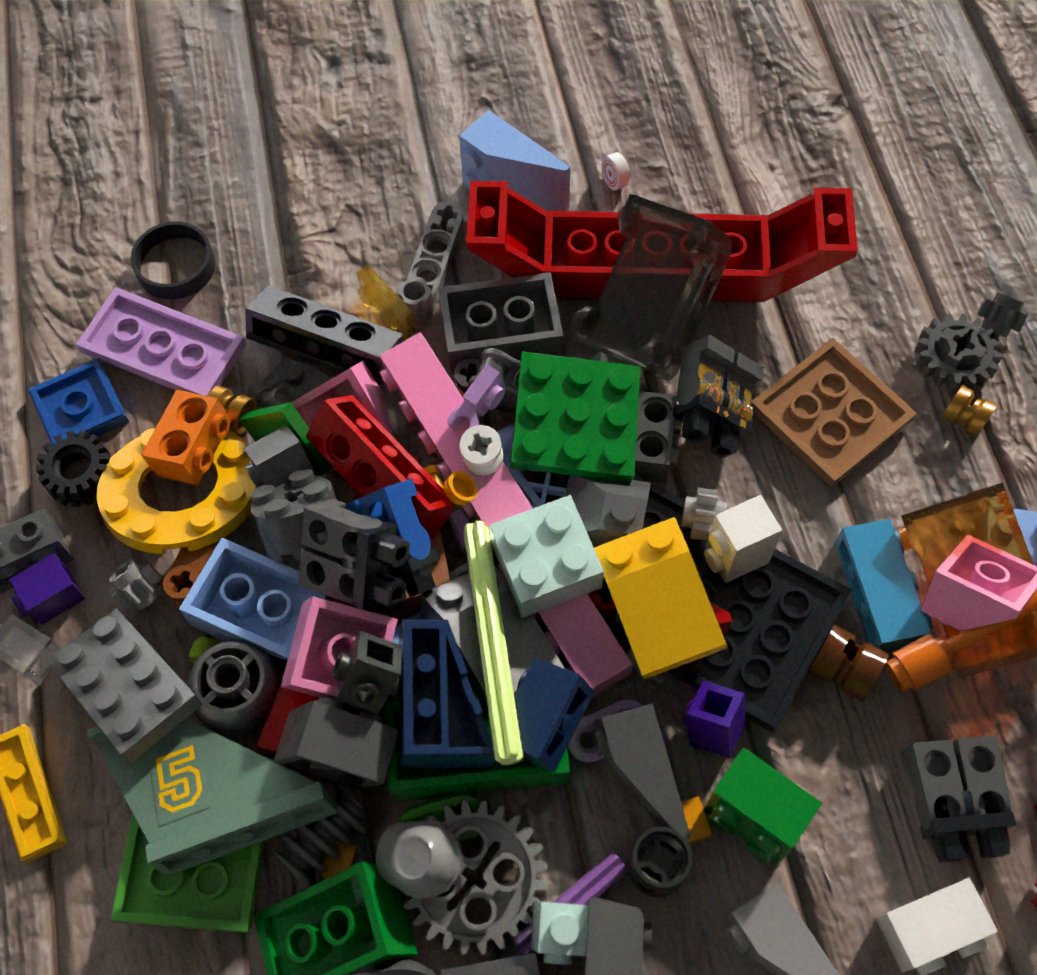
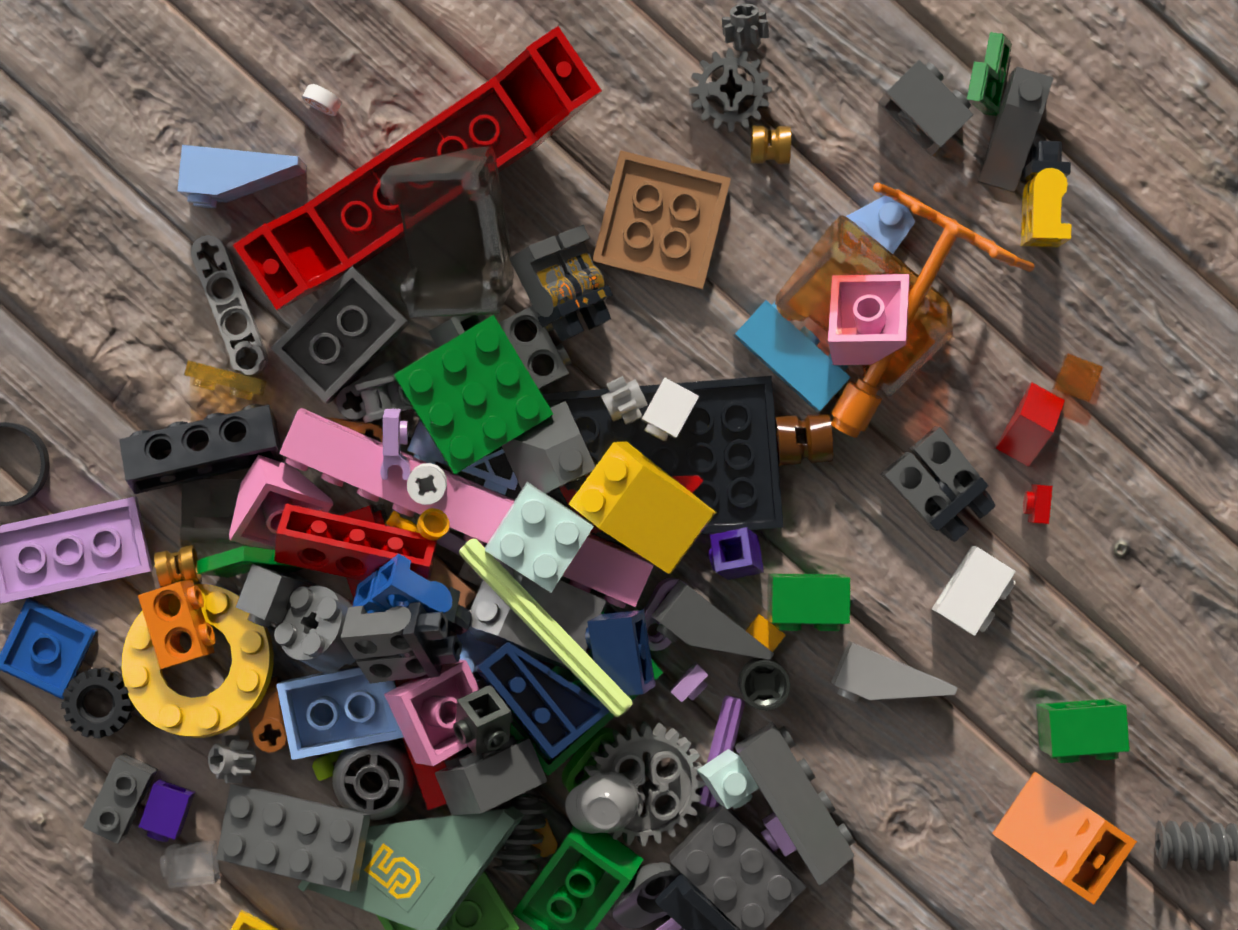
camera: 40 degrees left, 25 degrees up
(587, 812) = (690, 683): none -> lavender plate

